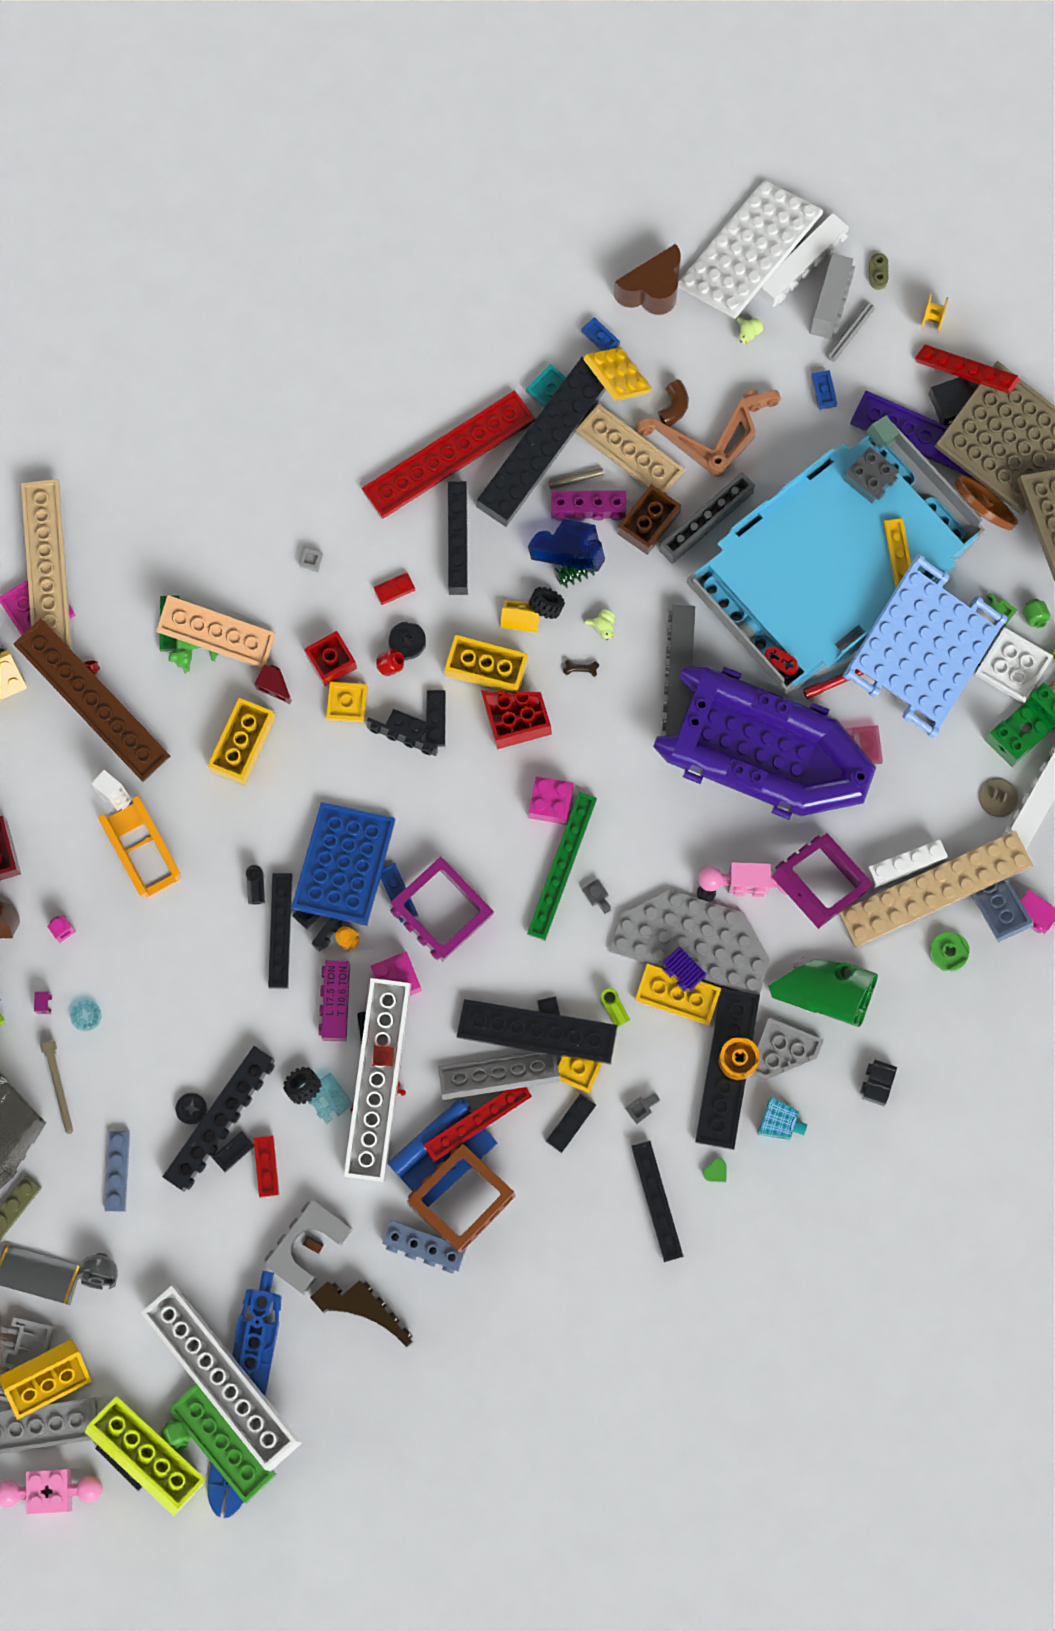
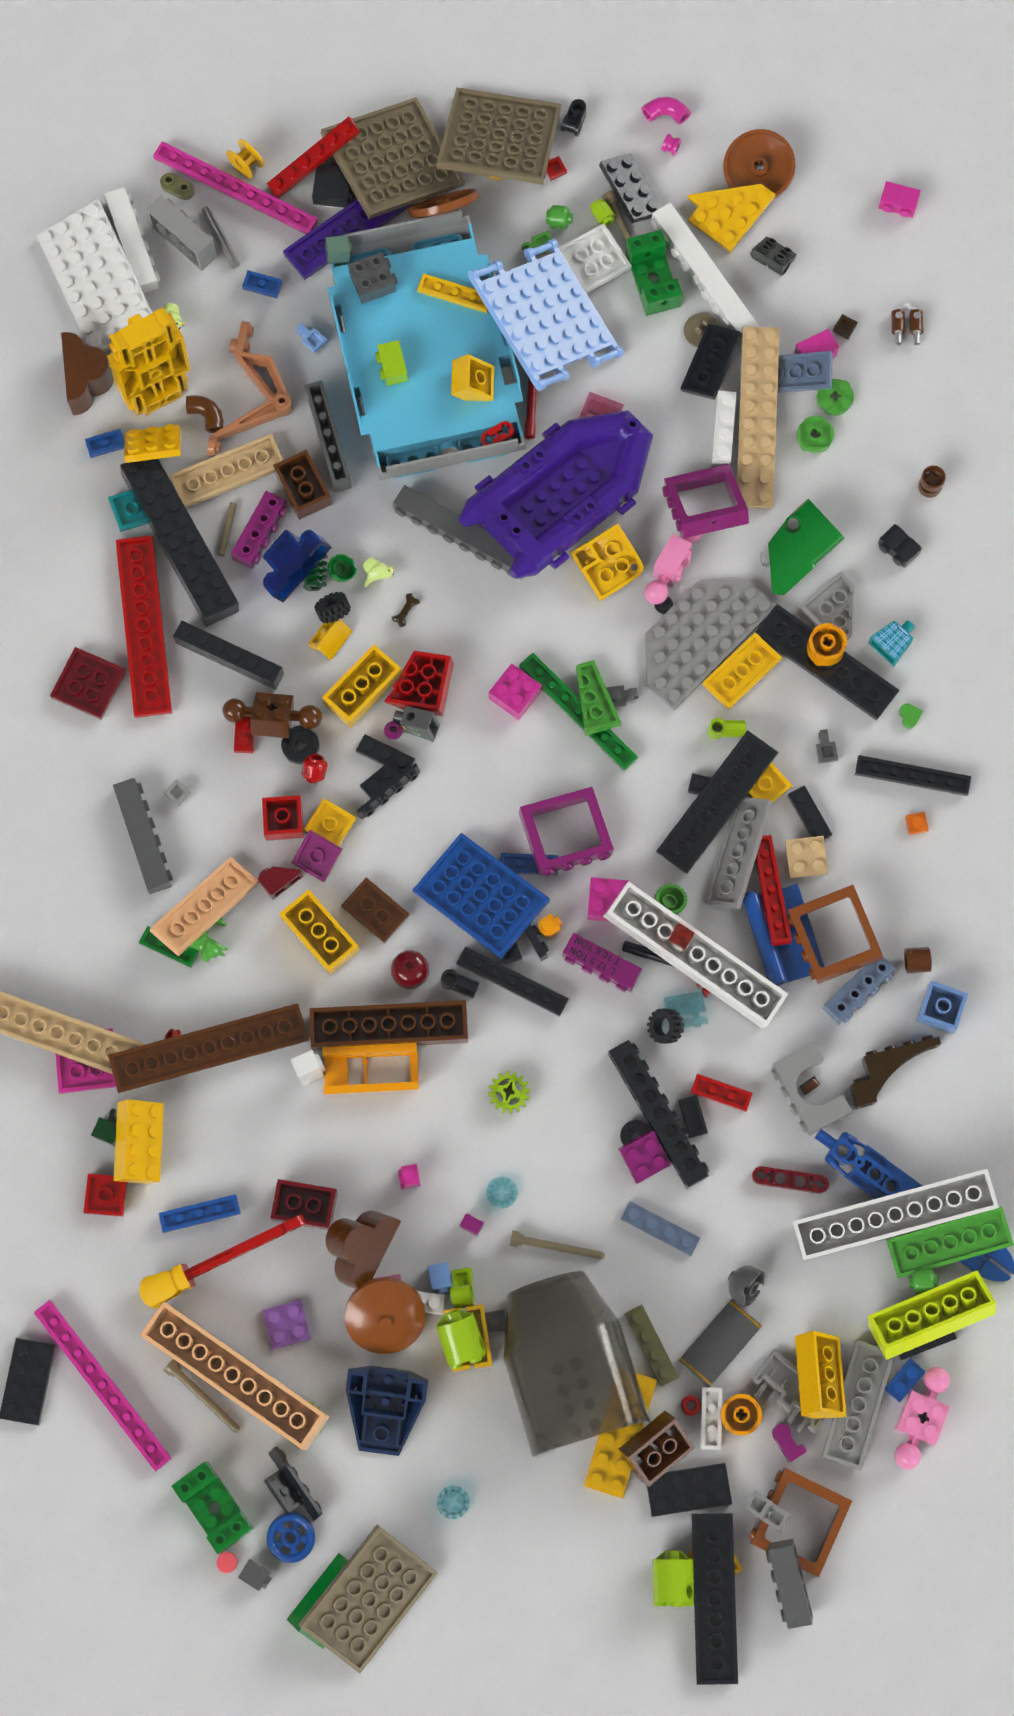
camera: 65 degrees left, 0 degrees up
(78, 1460) = (904, 1380): none -> blue plate
(169, 977) = (518, 1095): none -> lime gear
(174, 1124) = (644, 1156): none -> magenta plate
(186, 843) = (389, 1024): none -> reddish brown brick
(217, 1267) = (790, 1180): none -> dark red beam
(248, 836) = (409, 969): none -> dark red cylinder
(257, 550) = (142, 836): none -> dark grey brick
(287, 780) = (375, 910): none -> reddish brown plate
(312, 705) = (317, 855): none -> magenta plate
(372, 435) = (88, 683): none -> dark red plate
(419, 601) = (272, 714): none -> reddish brown brick
(424, 1034) = (672, 898): none -> bright green hat
(442, 1332) = (941, 1007): none -> medium blue brick
(461, 718) = (390, 735): none -> magenta plate
(477, 730) = (418, 722): none -> dark grey torso
(477, 1288) = (917, 960): none -> reddish brown piece
(527, 1138) = (806, 856): none -> tan plate
(576, 876) = (595, 701): none -> bright green wing
(589, 592) = (341, 568): none -> green hair
(613, 1227) = (916, 823): none -> orange plate
(676, 325) = (149, 362): none -> yellow piece
(683, 970) = (725, 653): dark purple brick -> none
(717, 821) = (607, 561): none -> yellow slope
(794, 458) = (311, 339): none -> light blue plate
(798, 534) = (392, 363): none -> lime brick
(821, 612) = (472, 379): none -> yellow slope
(904, 320) = (235, 188): none -> dark pink plate
(960, 1082) = (931, 481): none -> reddish brown wheel
(968, 820) = (711, 361): none -> black plate
(998, 963) = (844, 402): none -> bright green plate

